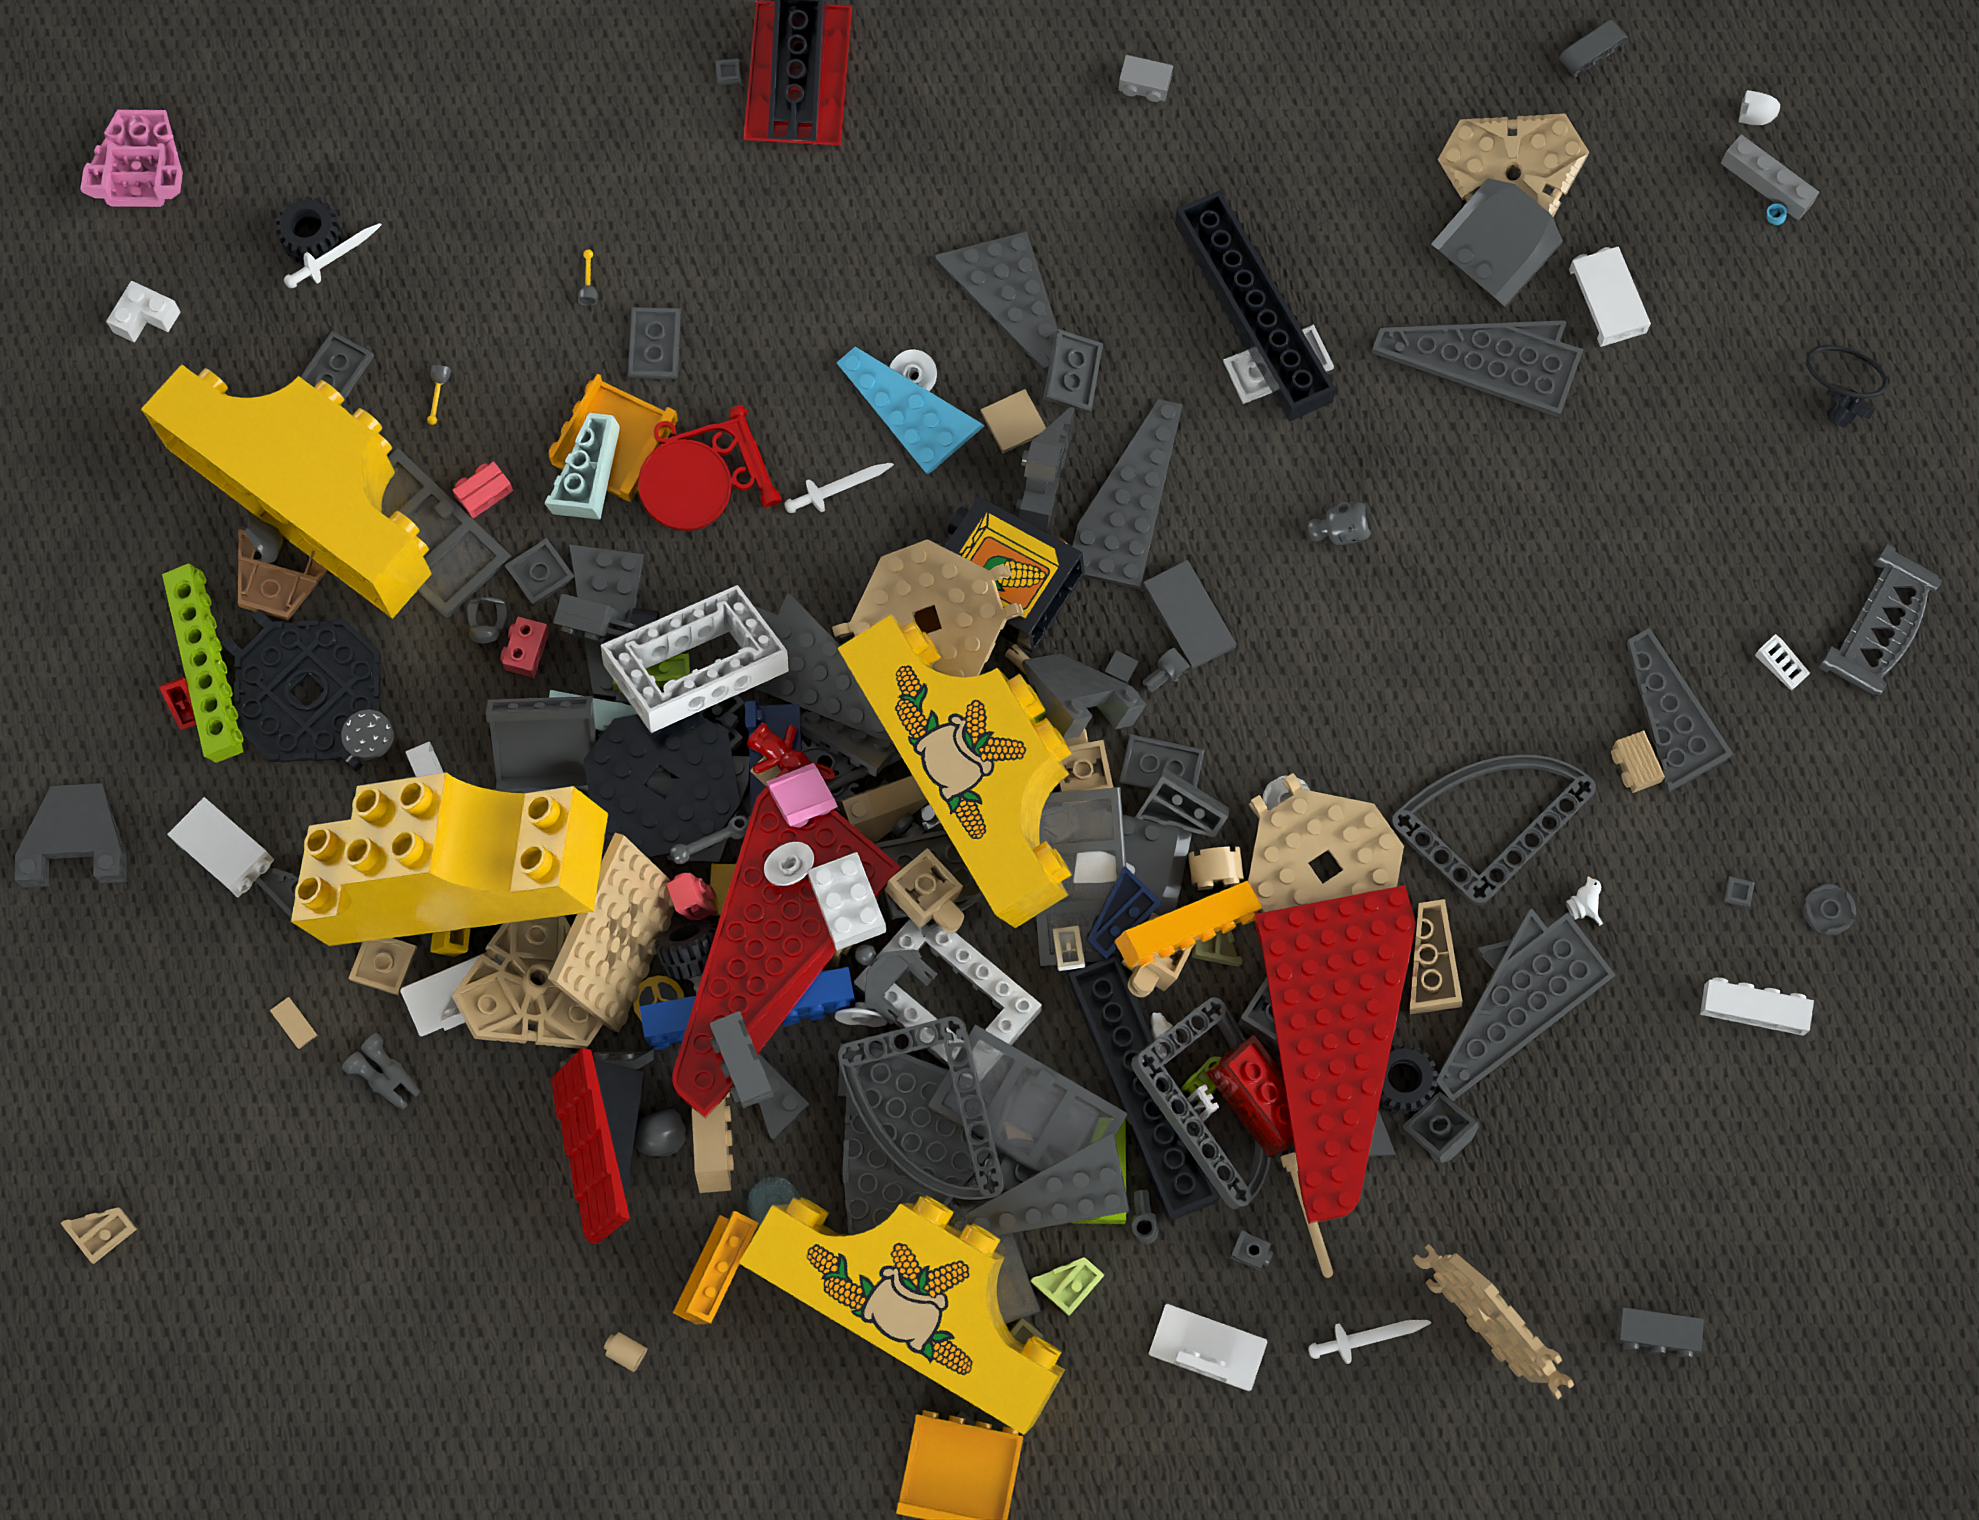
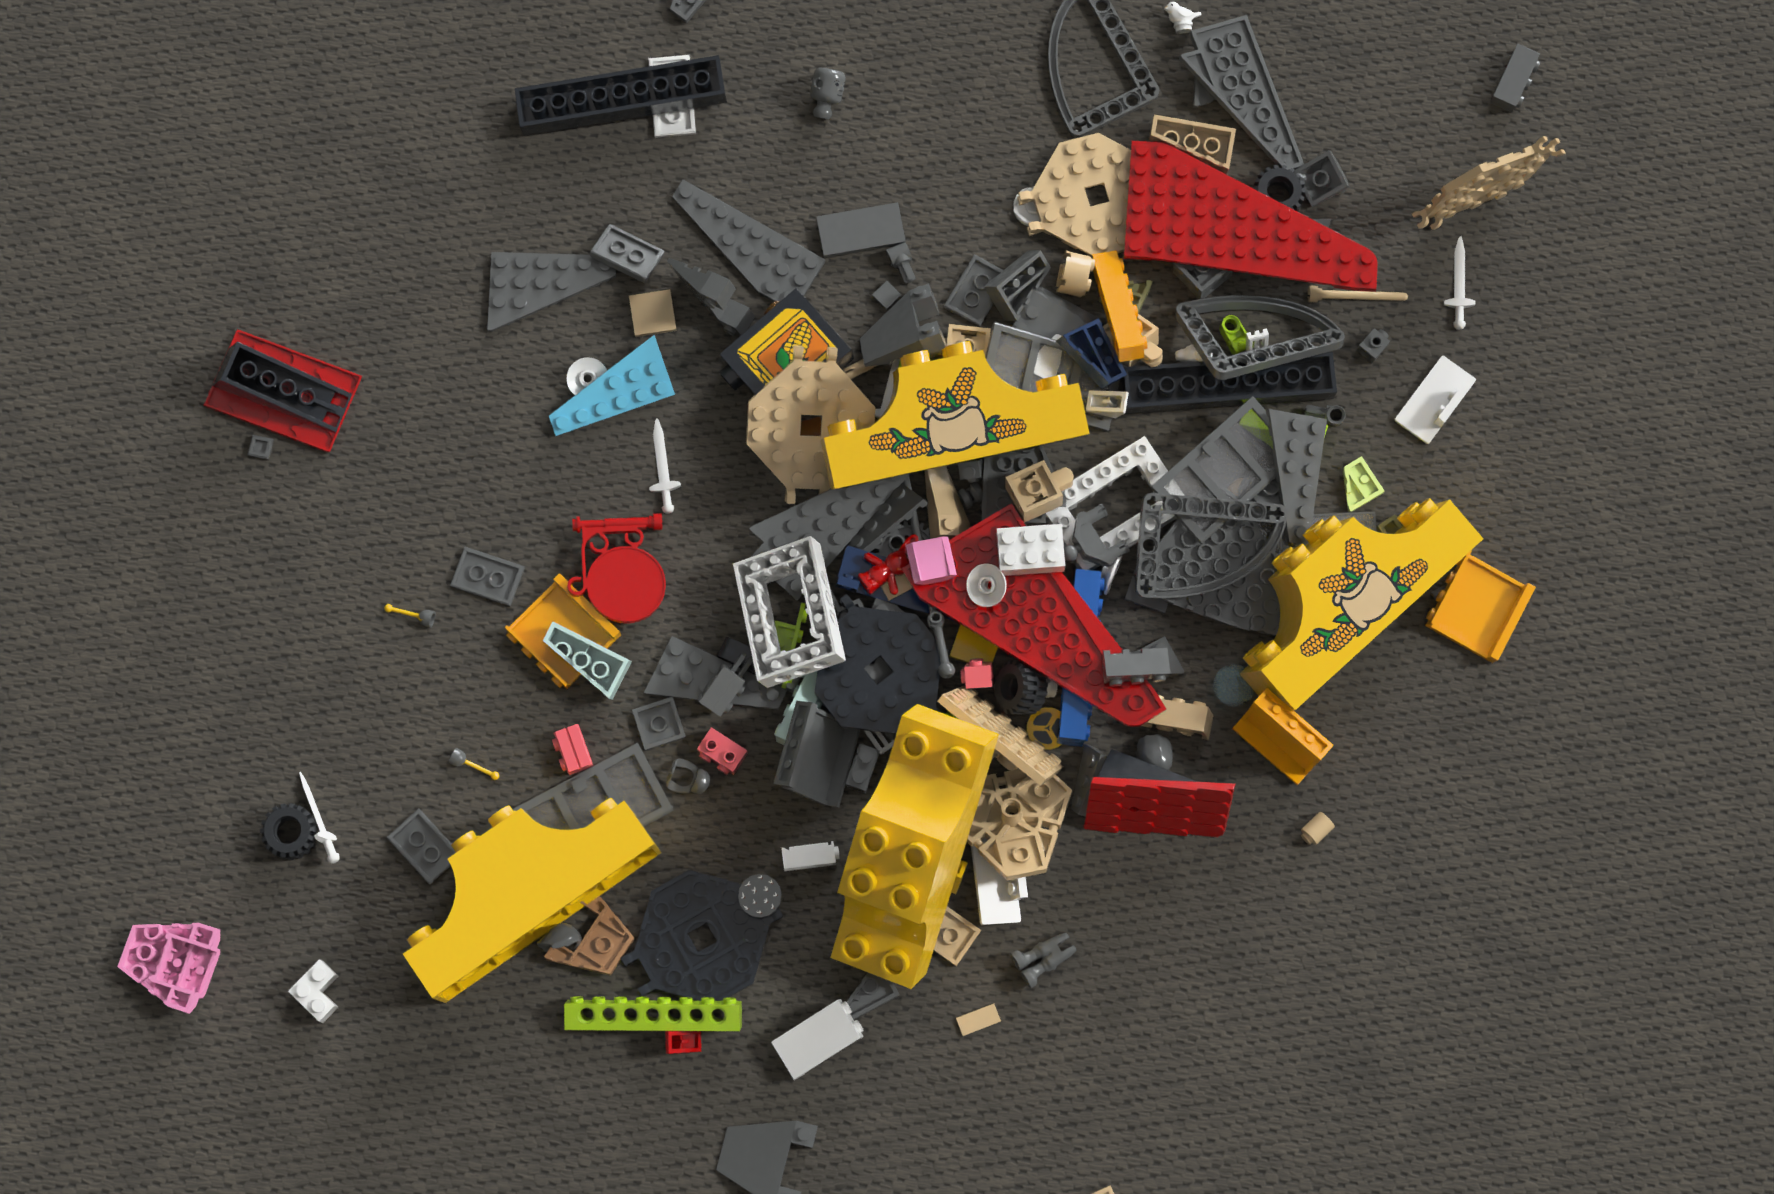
camera: 75 degrees left, 5 degrees up
(1145, 78) = (389, 116): light grey brick -> none
(1256, 1093) = (1262, 299): brick -> none

